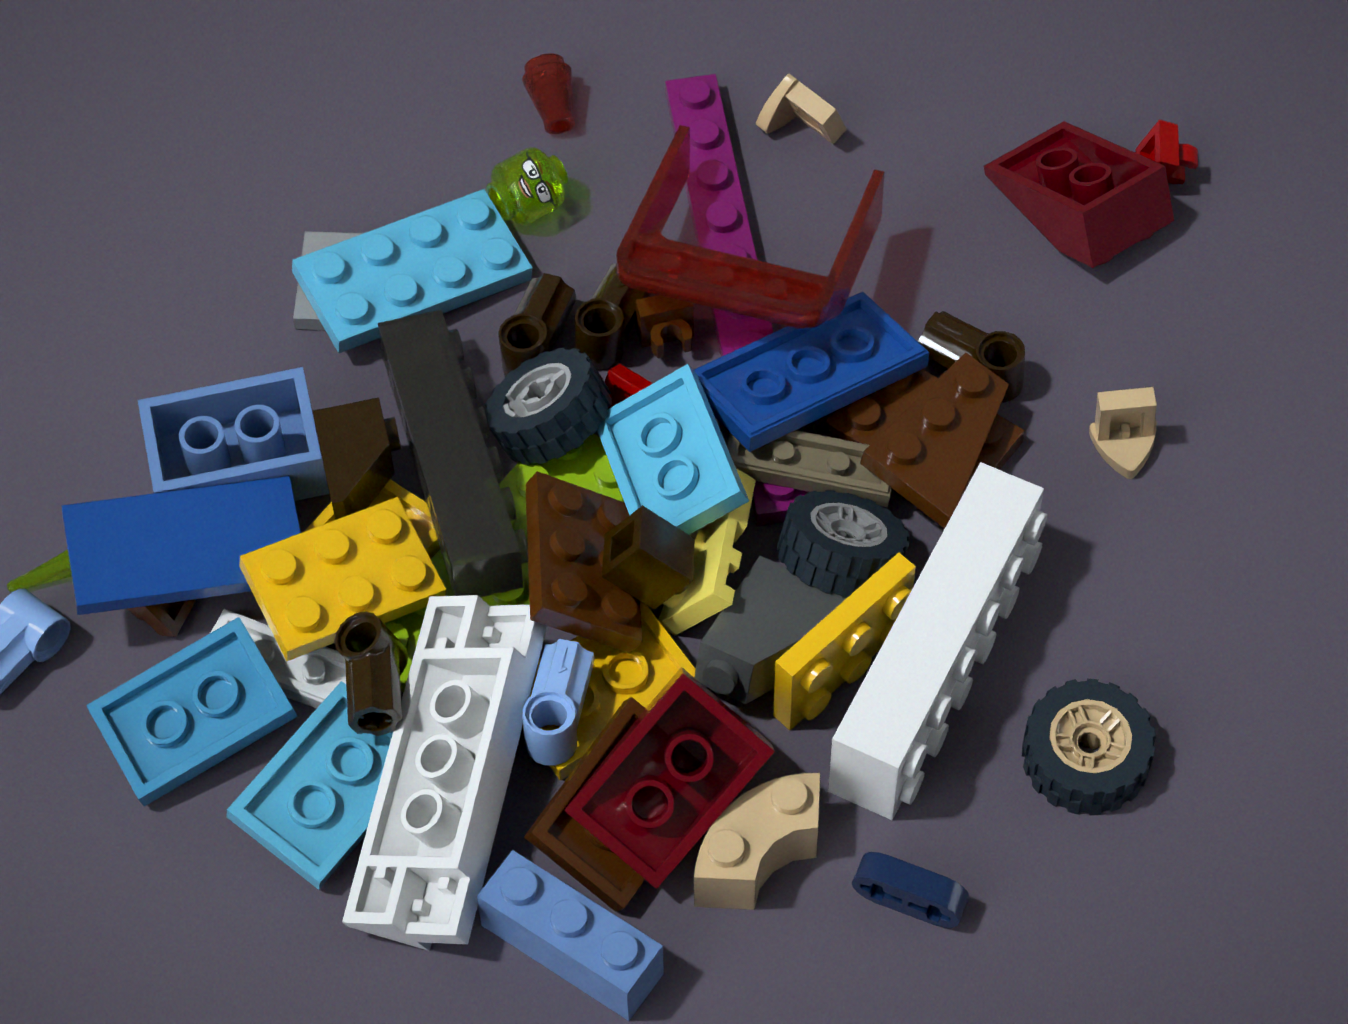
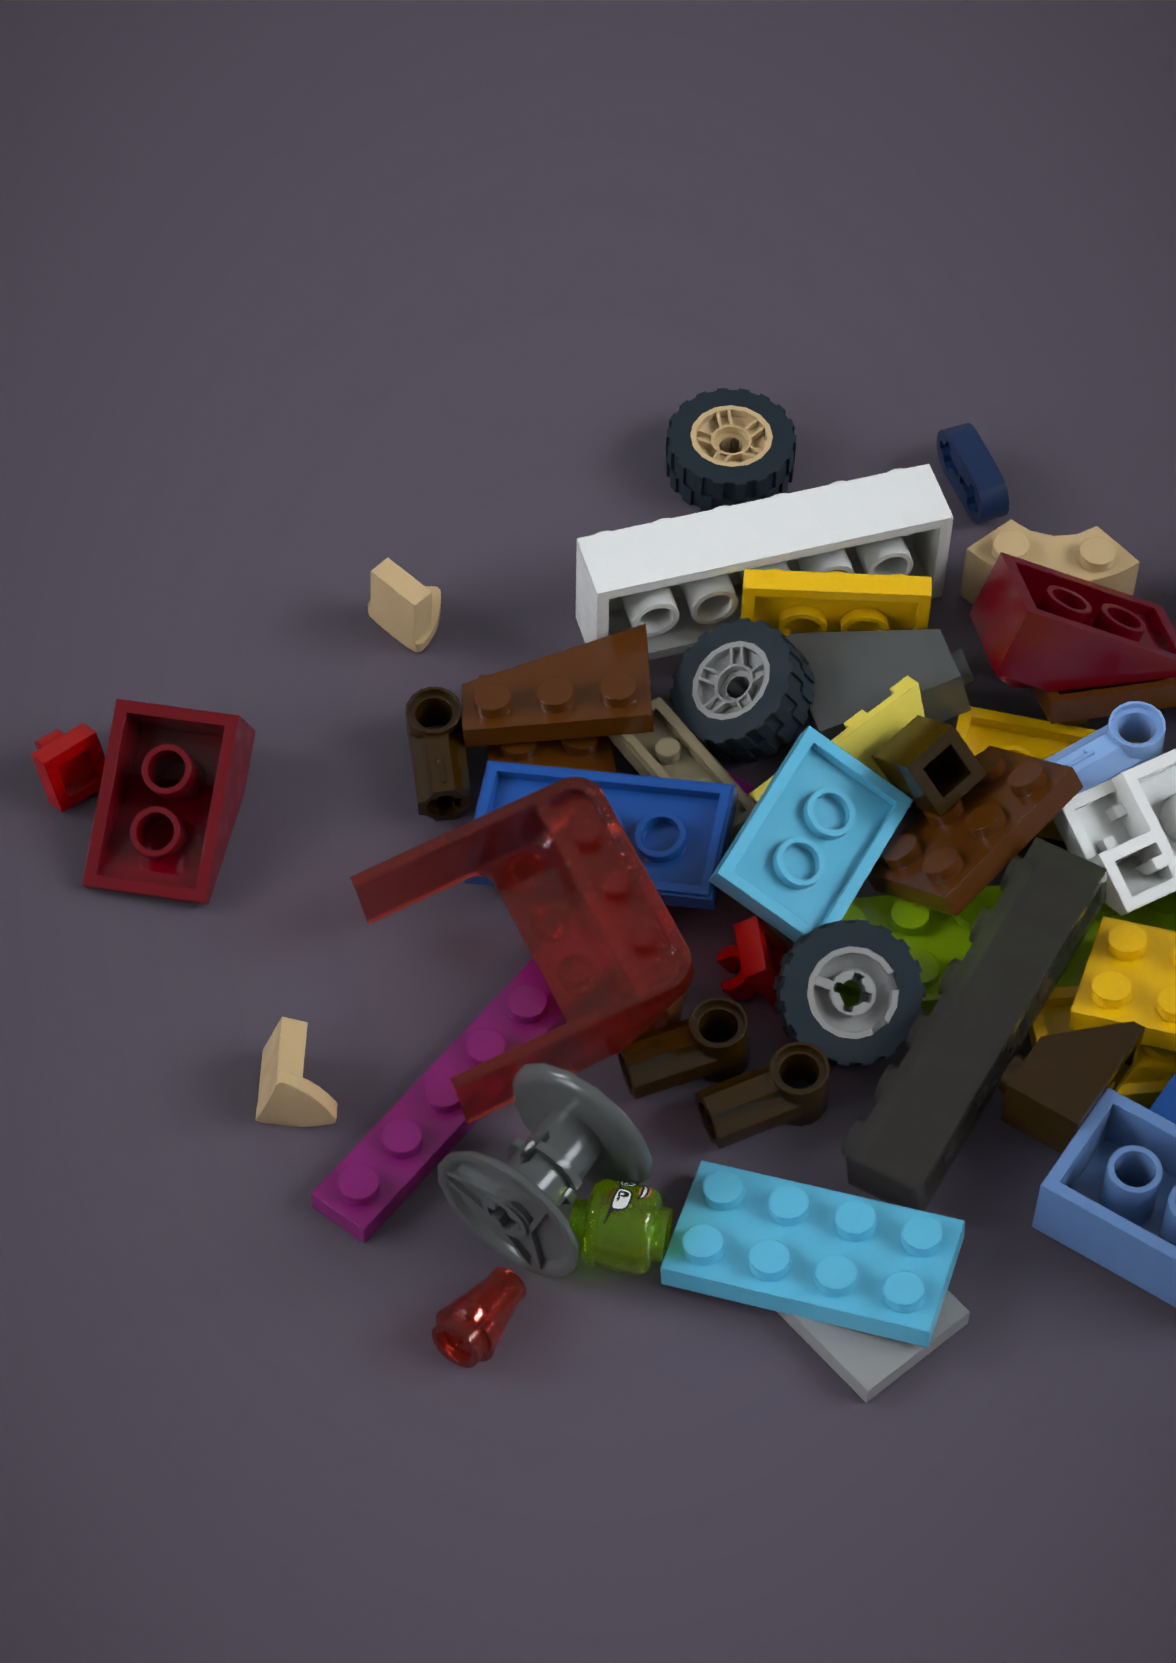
camera: 135 degrees left, 5 degrees down
(584, 120) = (571, 1138): none -> dark grey piece

